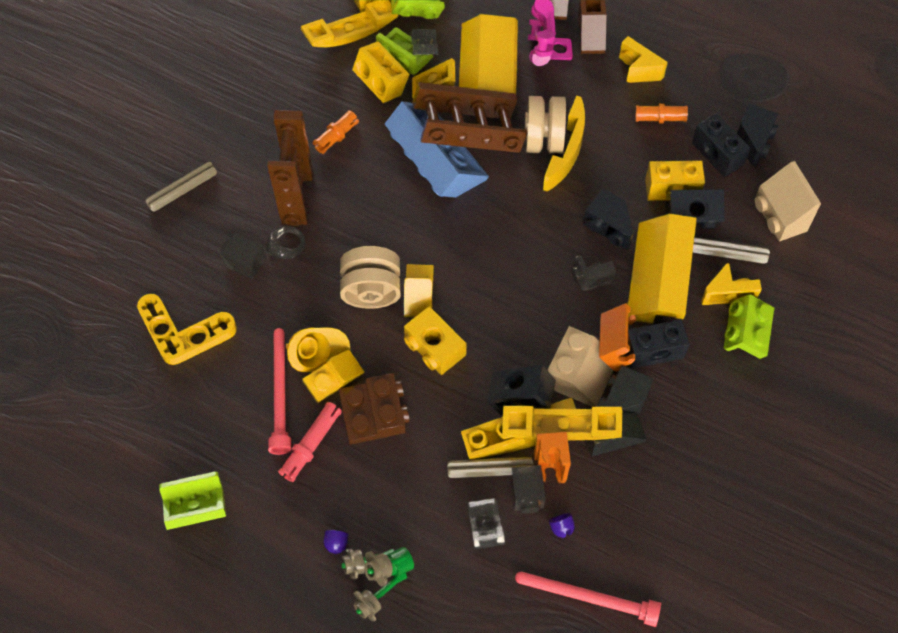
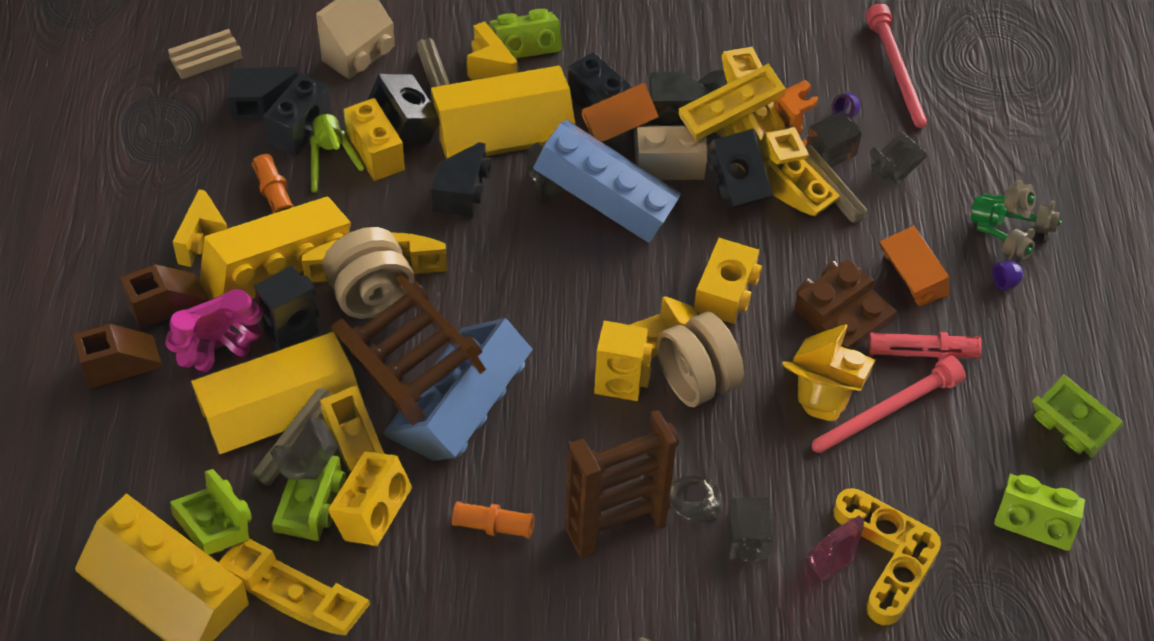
camera: 120 degrees left, 10 degrees down
(147, 436) = (1040, 511): none -> lime bracket
(196, 288) = (836, 549): none -> clear pink slope
(377, 475) = (916, 265): none -> orange hinge
(397, 231) = (622, 361): none -> yellow brick
(446, 53) = (268, 469): none -> dark tan axle
(540, 72) = (287, 308): none -> black brick
(559, 299) = (606, 180): none -> medium blue slope
(572, 395) = (732, 102): none -> yellow plate
(598, 88) = (267, 245): none -> yellow wedge
(692, 153) = (328, 136): none -> lime plant
(825, 119) = (205, 54): none -> tan tile

